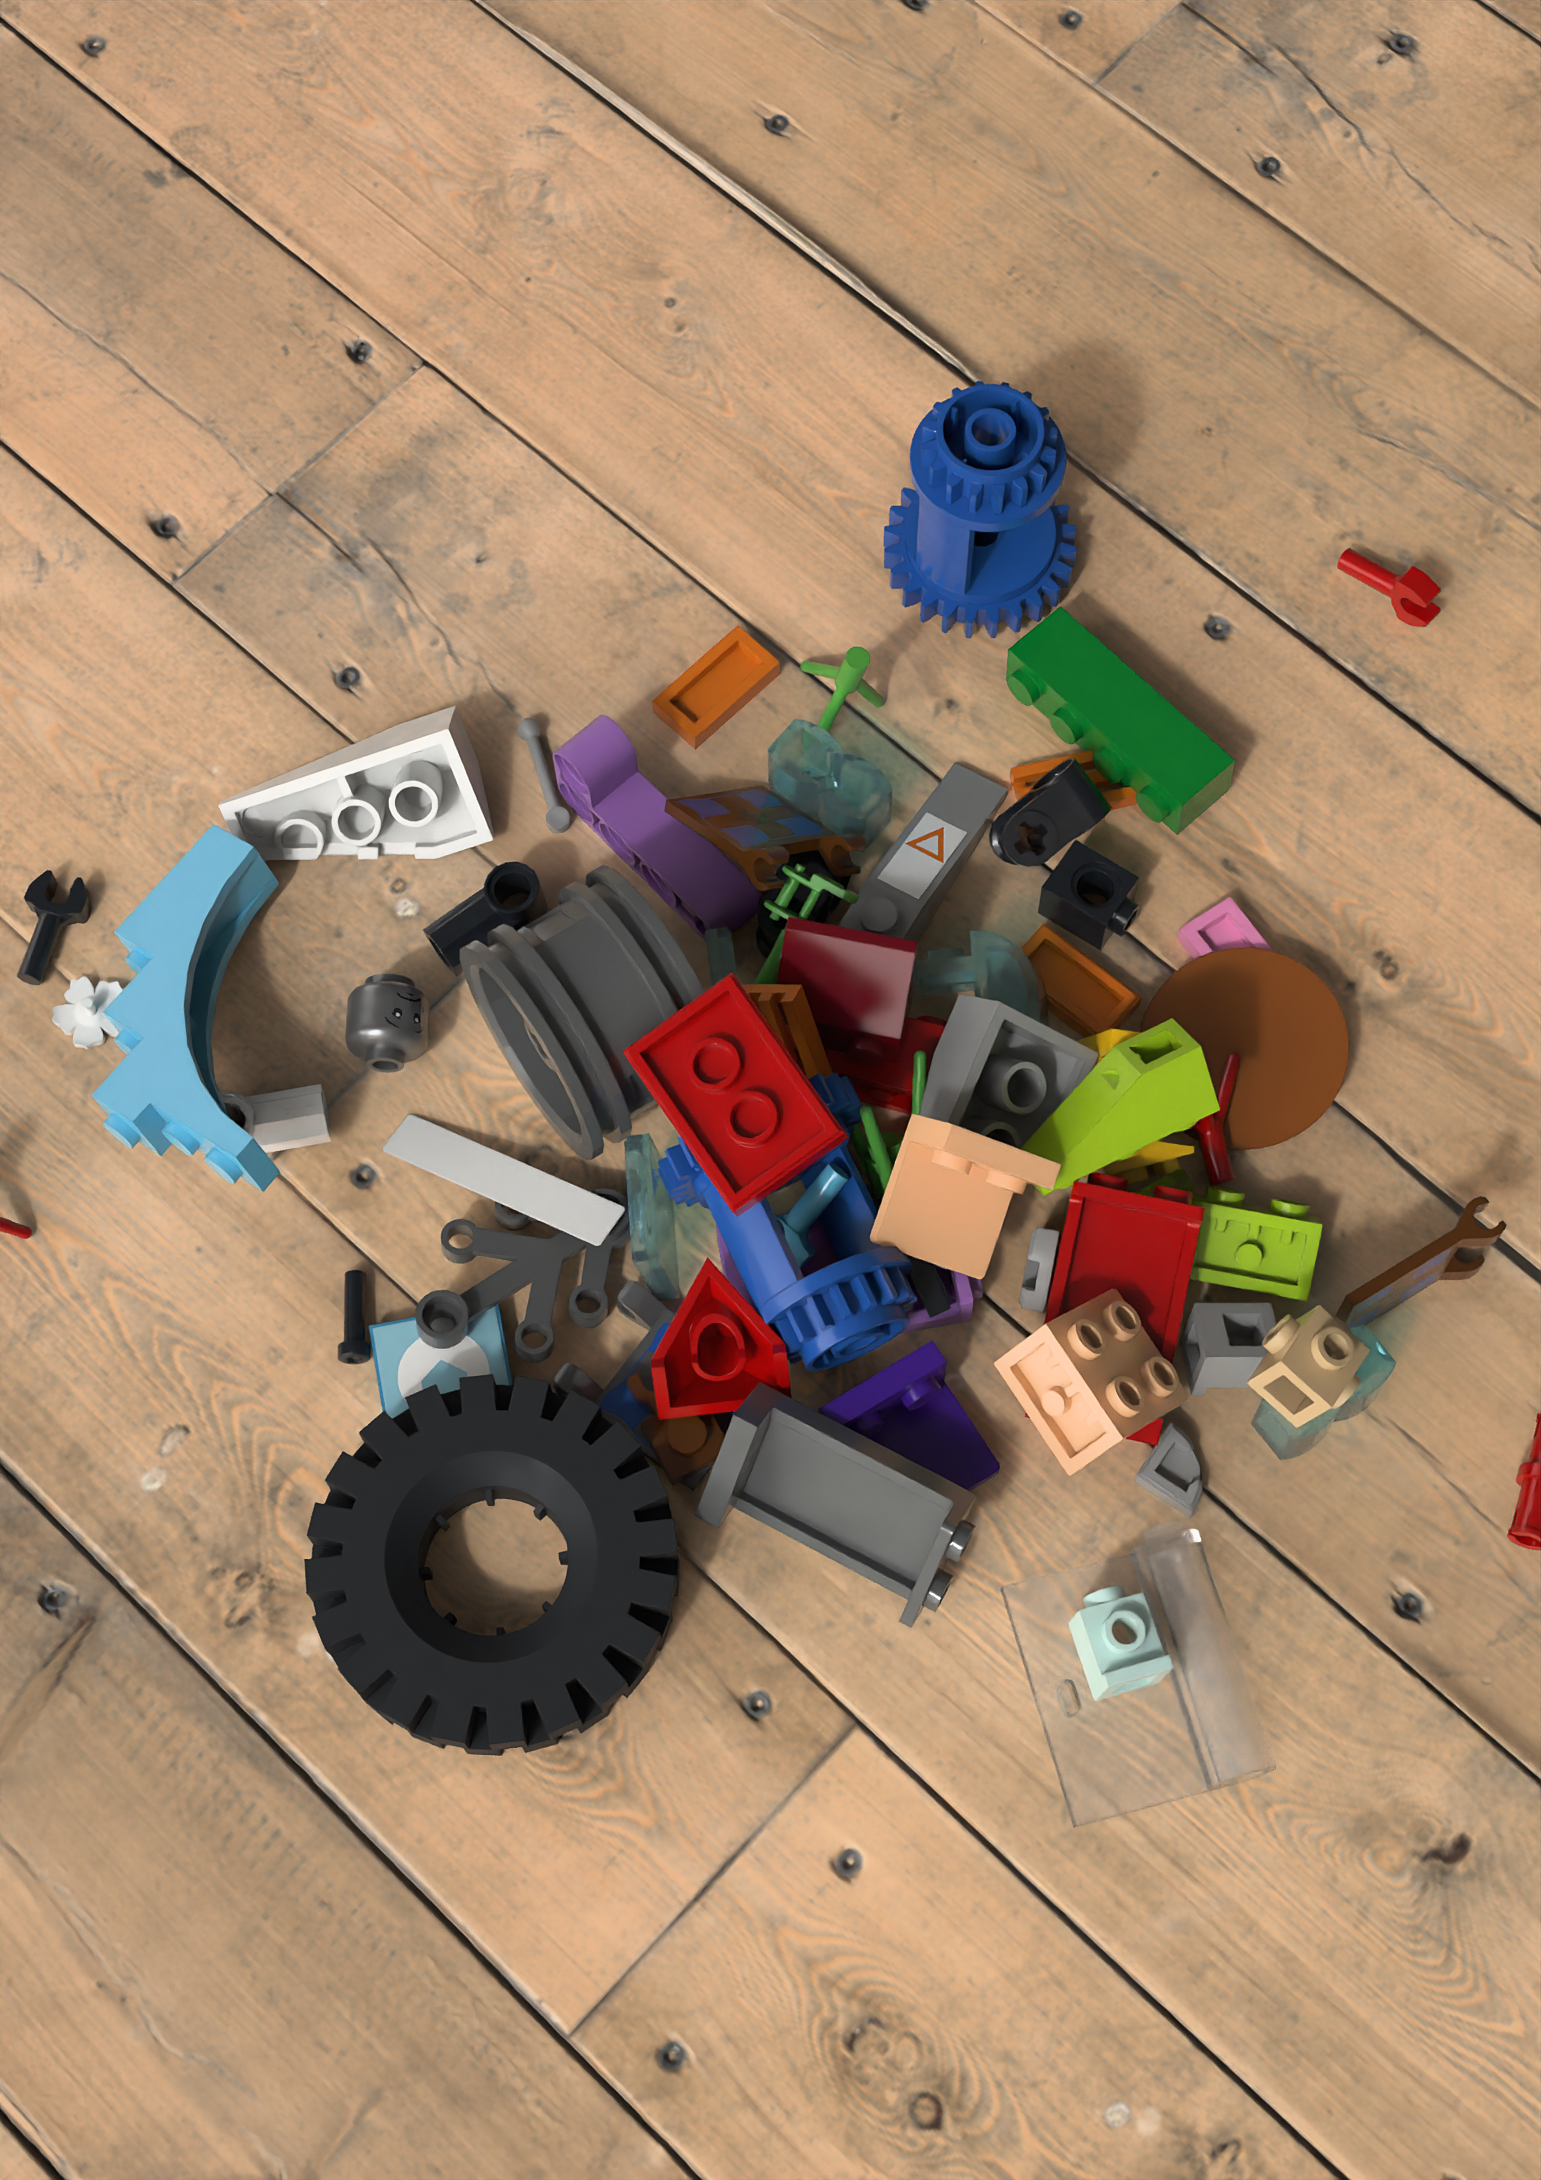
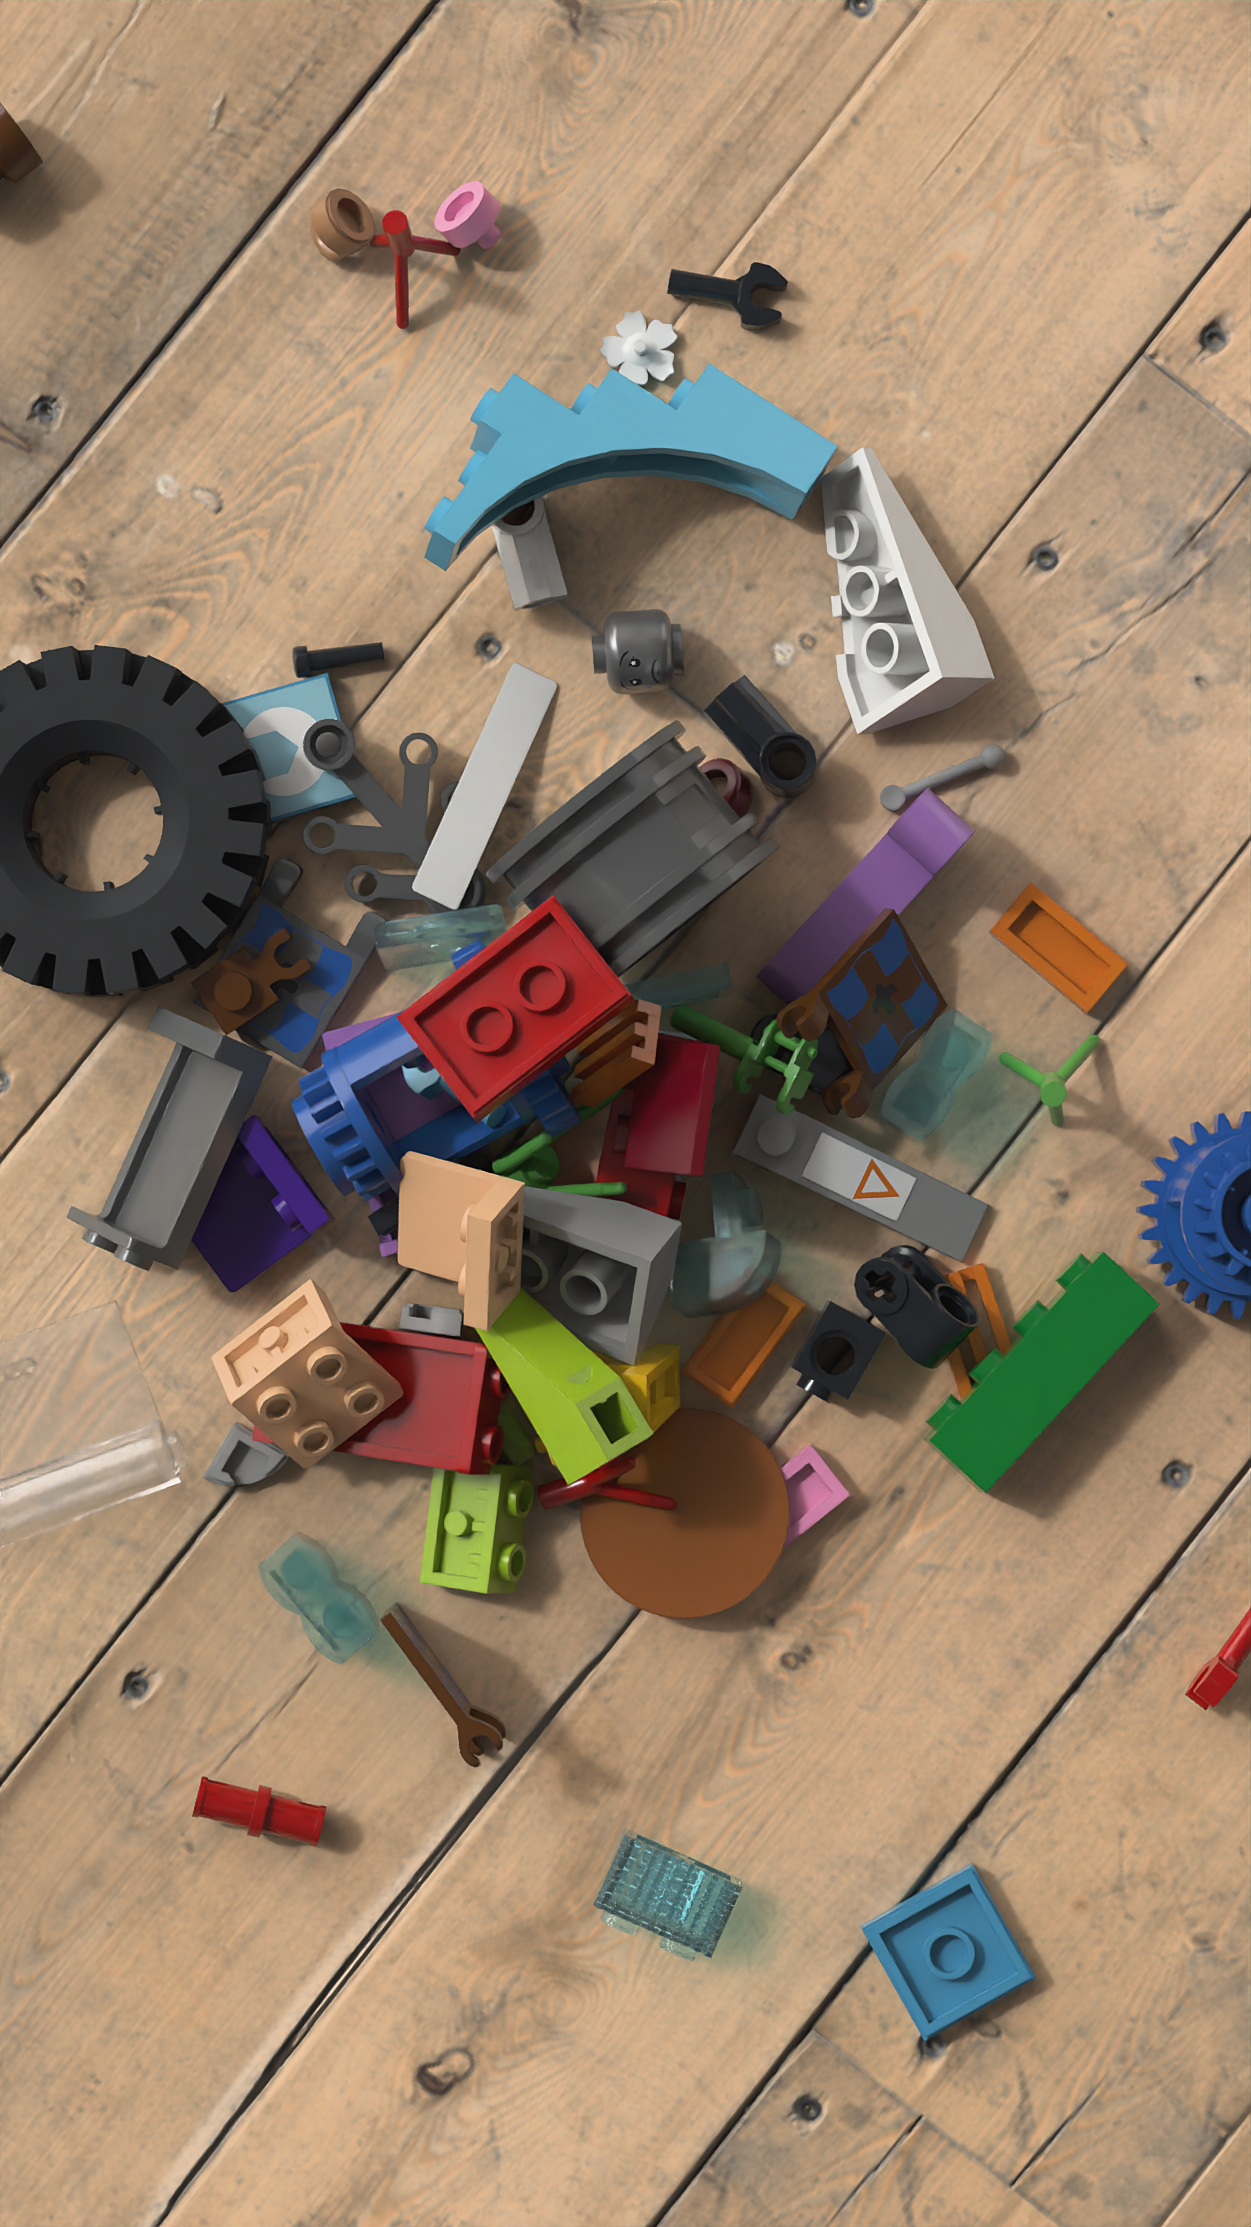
camera: 85 degrees right, 20 degrees up
(715, 1352) = (297, 1013): red slope -> none
(1115, 1666) = (35, 1406): light aqua brick -> none
(1224, 1343) = (385, 1521): light grey brick -> none
(1308, 1365) = (314, 1578): tan brick -> none

